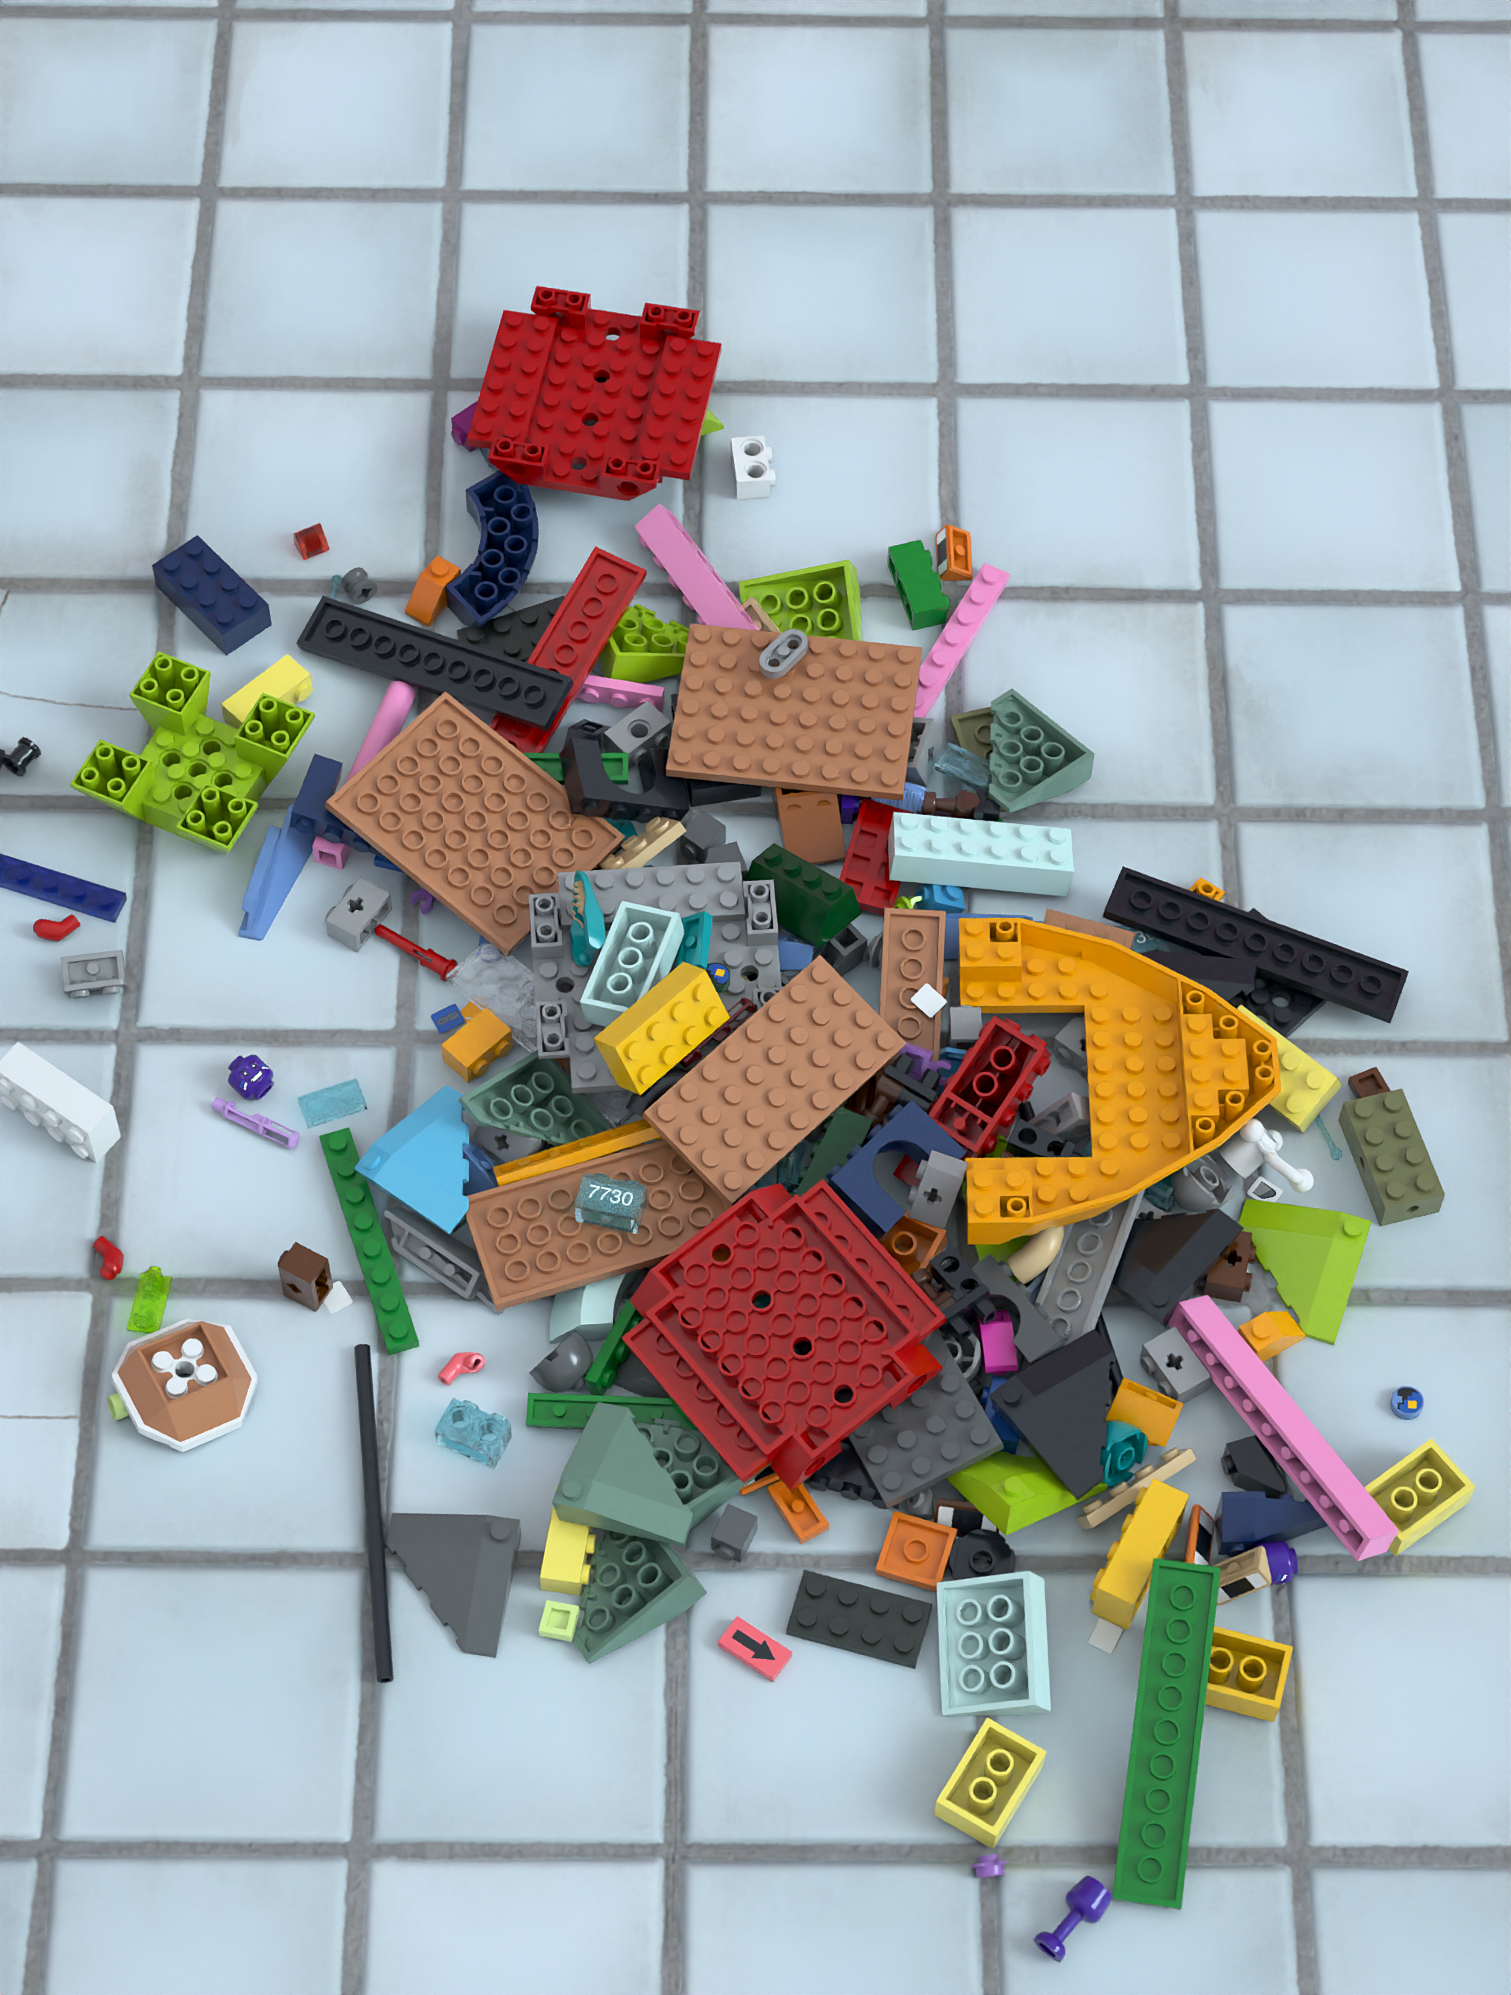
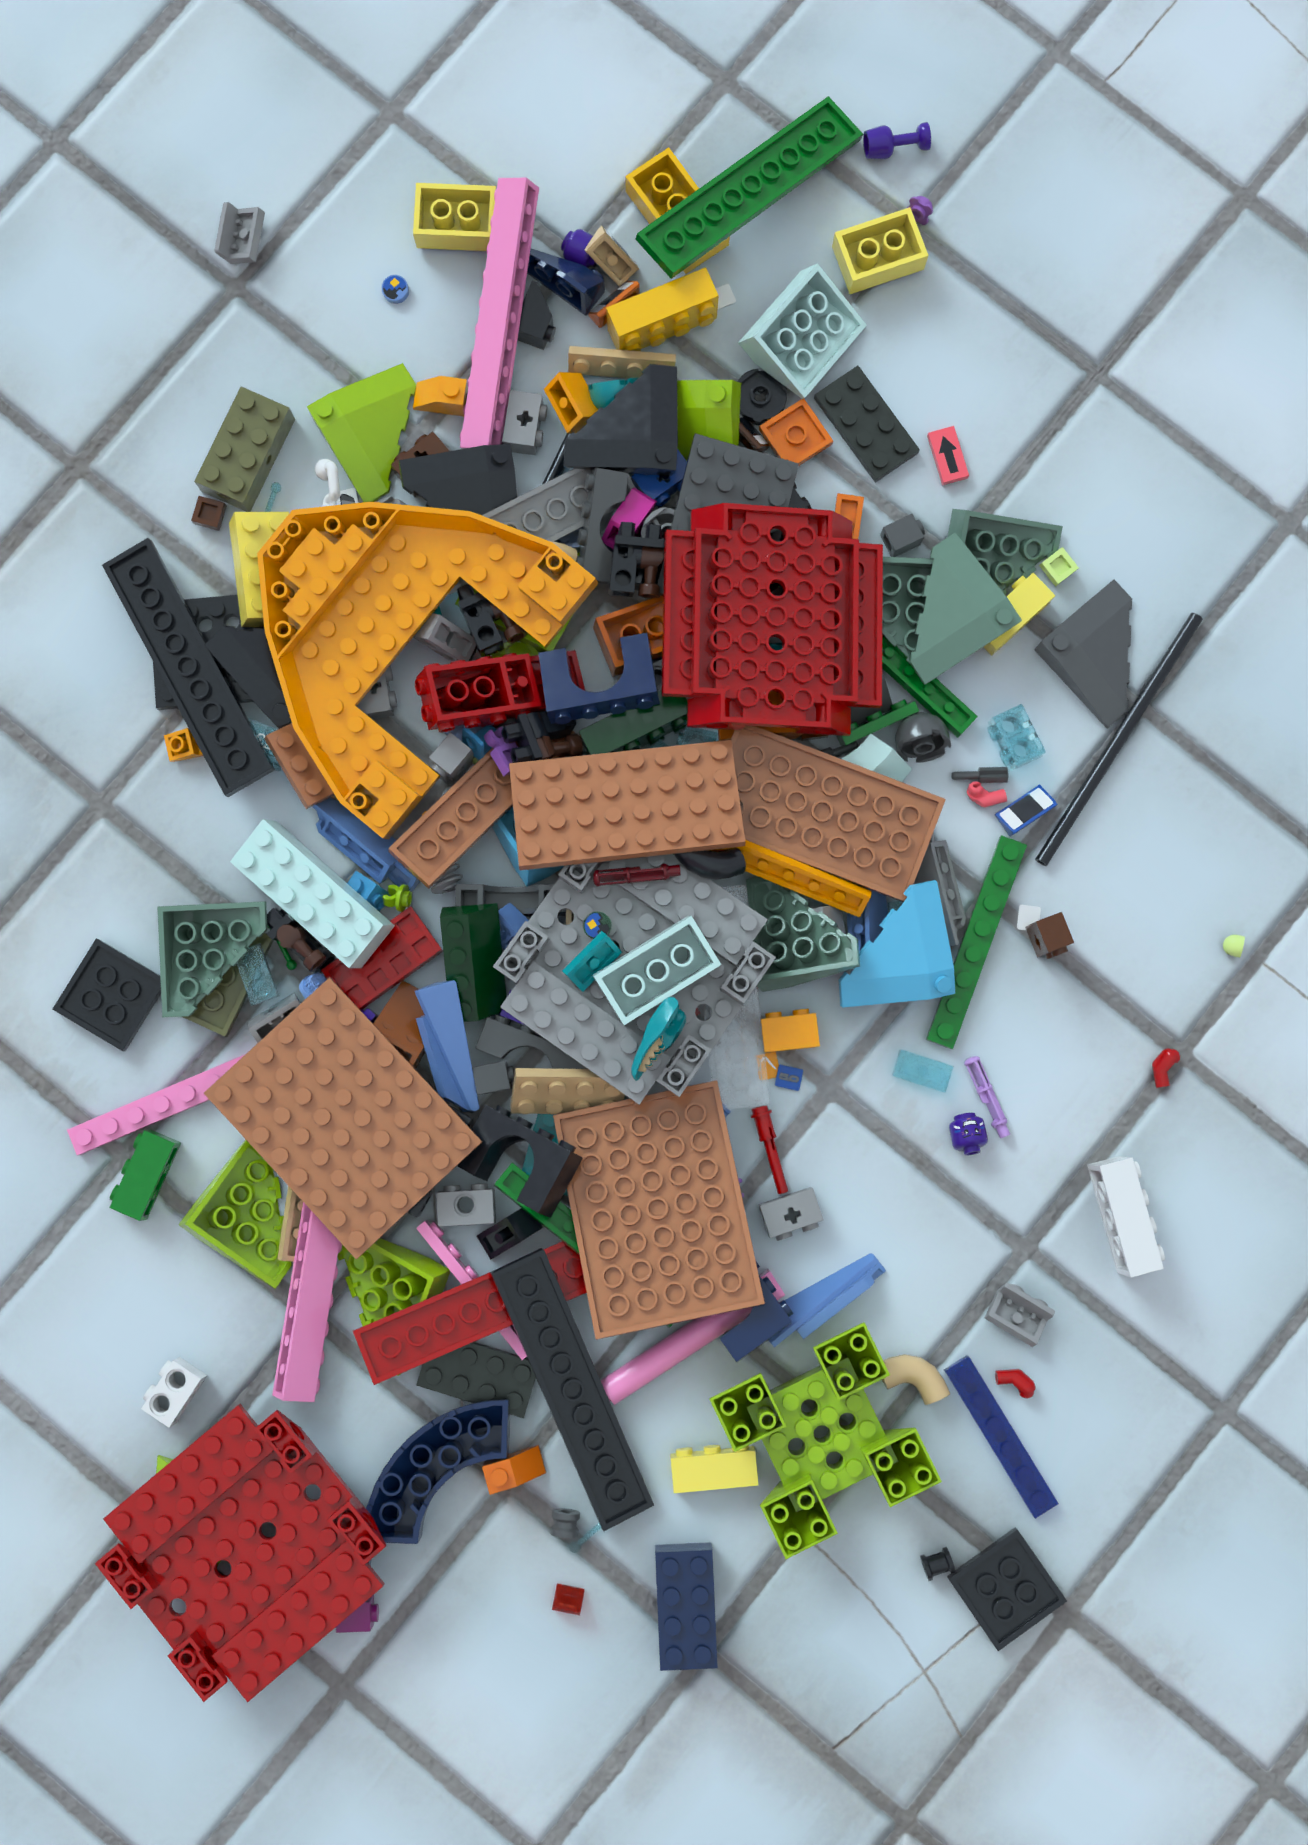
camera: 140 degrees left, 25 degrees up
(149, 1301) = (1161, 1009): clear neon green hinge -> none
(152, 873) = (918, 1373): none -> tan cylinder
(190, 1408) = (1162, 949): nougat piece -> none
(412, 1380) = (1025, 810): none -> slope
(477, 1383) = (984, 775): none -> dark grey axle
(611, 1202) = (812, 806): clear light blue brick -> none
(661, 1028) = (682, 893): yellow brick -> none
(763, 823) = (447, 1044): none -> medium blue wedge
(780, 654) = (315, 1164): light grey plate -> none
(928, 1000) = (457, 797): white sticker -> none
(937, 1189) = (582, 641): light grey brick -> none
(954, 554) = (91, 1185): orange slope -> none
(1073, 682) = (110, 995): none -> black plate

